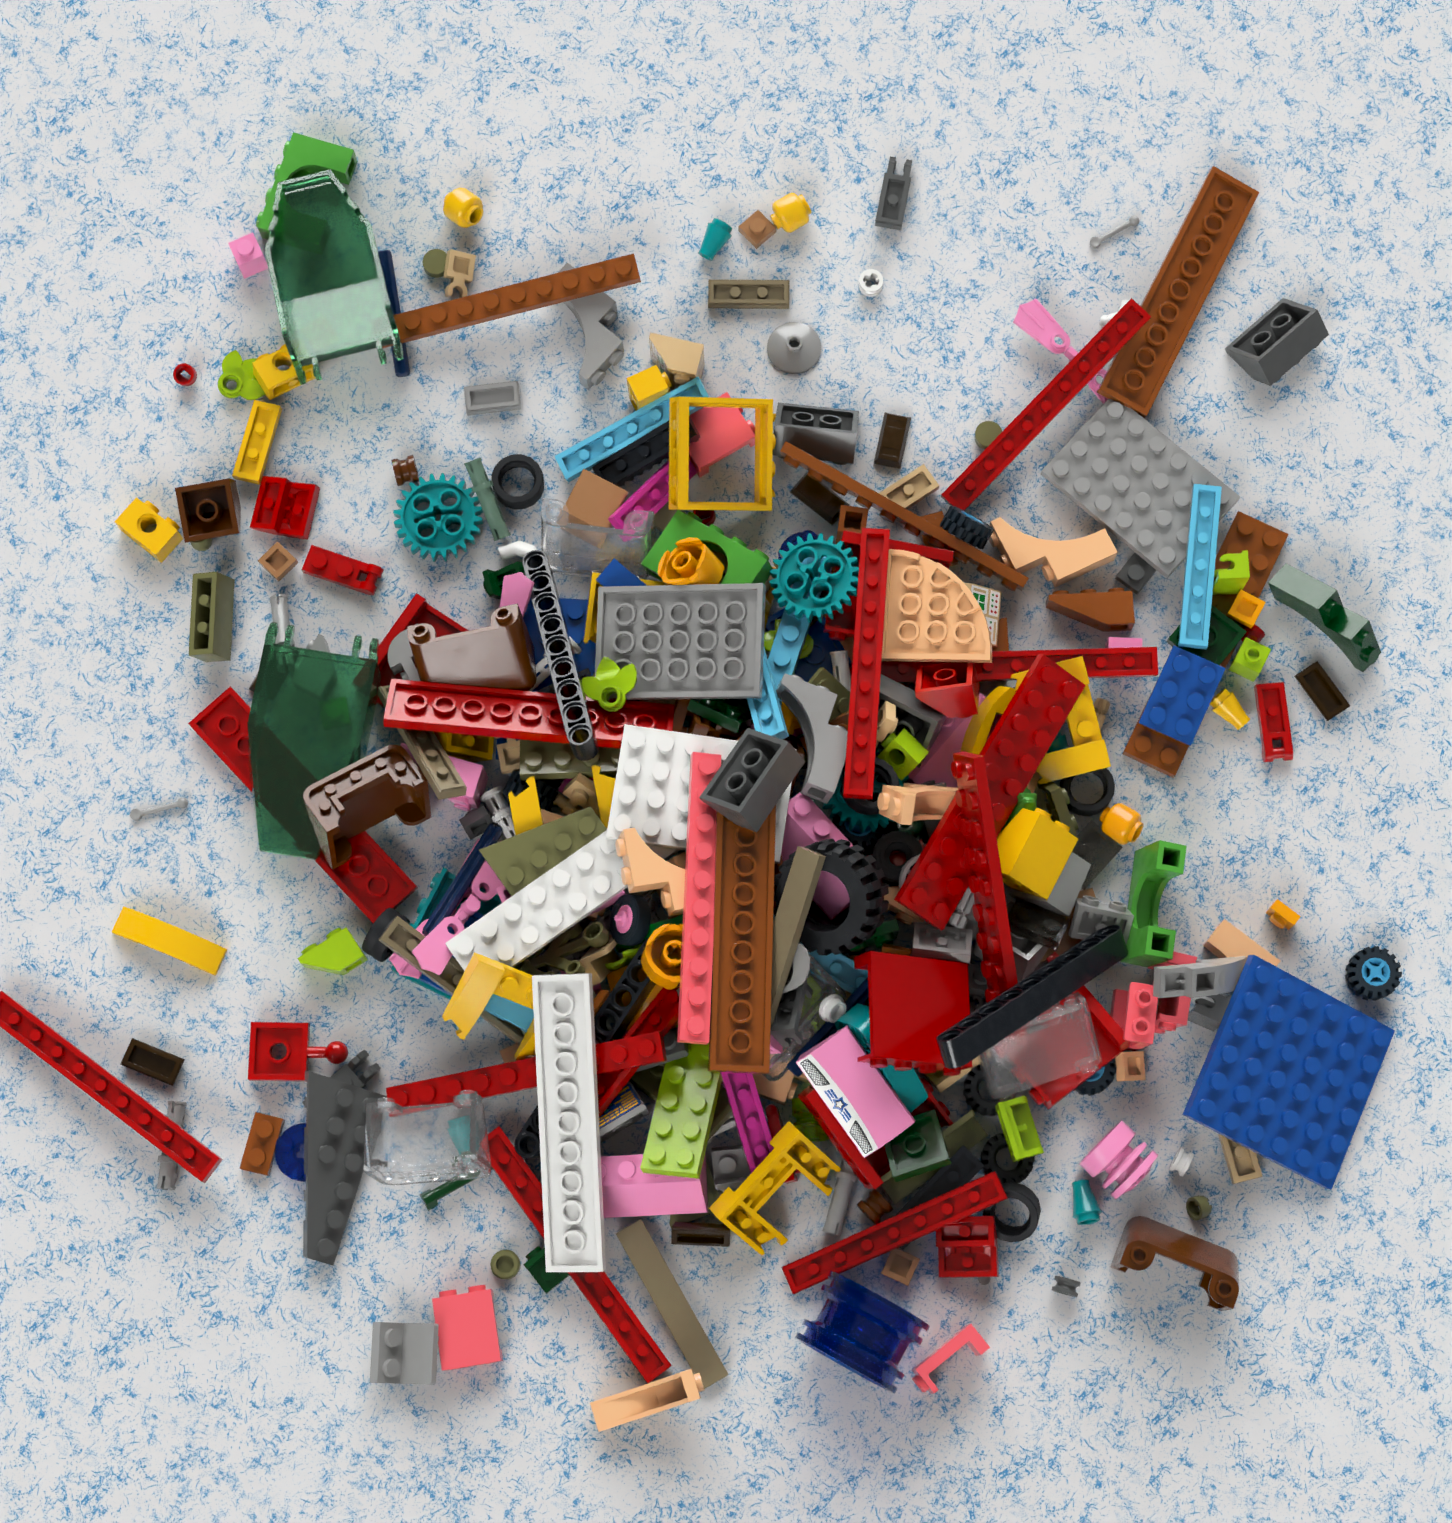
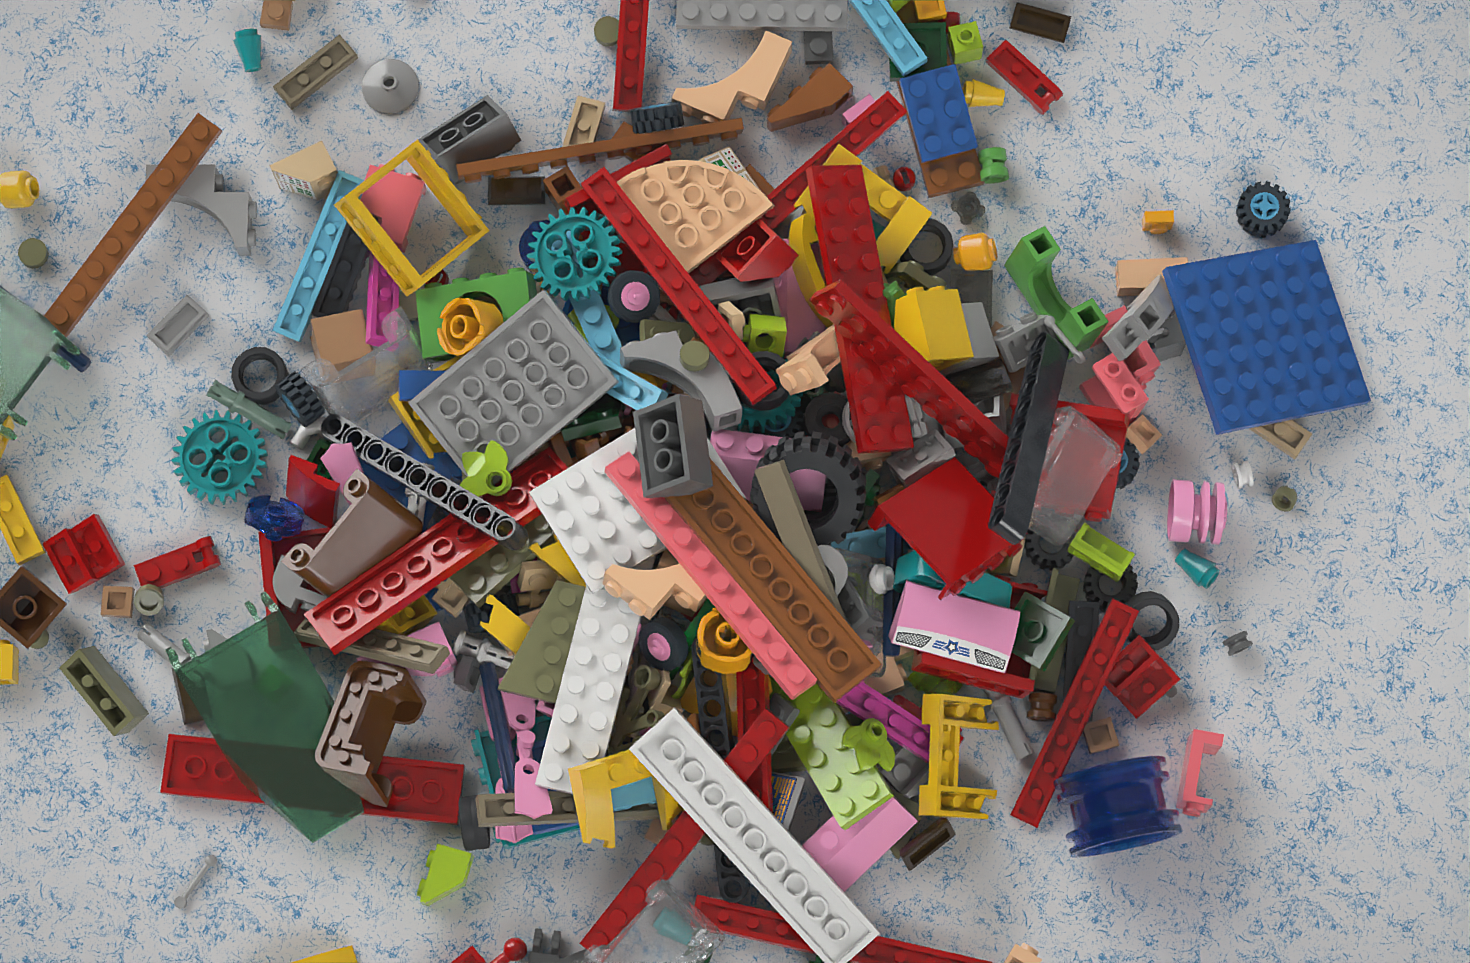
camera: 40 degrees left, 0 degrees up
(300, 578) = (149, 600): none -> olive tile
(405, 470) = (158, 441): reddish brown wheel -> none
(437, 592) = (274, 517): none -> clear blue plate
(460, 269) = (59, 243): tan plate -> none
(478, 596) = (312, 492): none -> red slope
(528, 521) = (300, 399): none -> black wheel
(647, 386) = (303, 213): yellow brick -> none
(671, 1303) = (946, 914): dark tan tile -> none
(712, 1126) = (870, 746): none -> lime plate
(831, 644) = (634, 296): none -> black wheel
(832, 724) = (694, 356): none -> olive tile
(892, 440) = (534, 97): dark brown tile -> none
(1110, 720) = (898, 179): none -> red hinge
(1129, 966) = (1049, 321): none -> light grey hinge
(1146, 778) = (971, 200): none -> clear smoke plate
(1147, 1237) = (1268, 555): reddish brown windscreen -> none
(1191, 769) = (993, 165): none -> bright green wheel

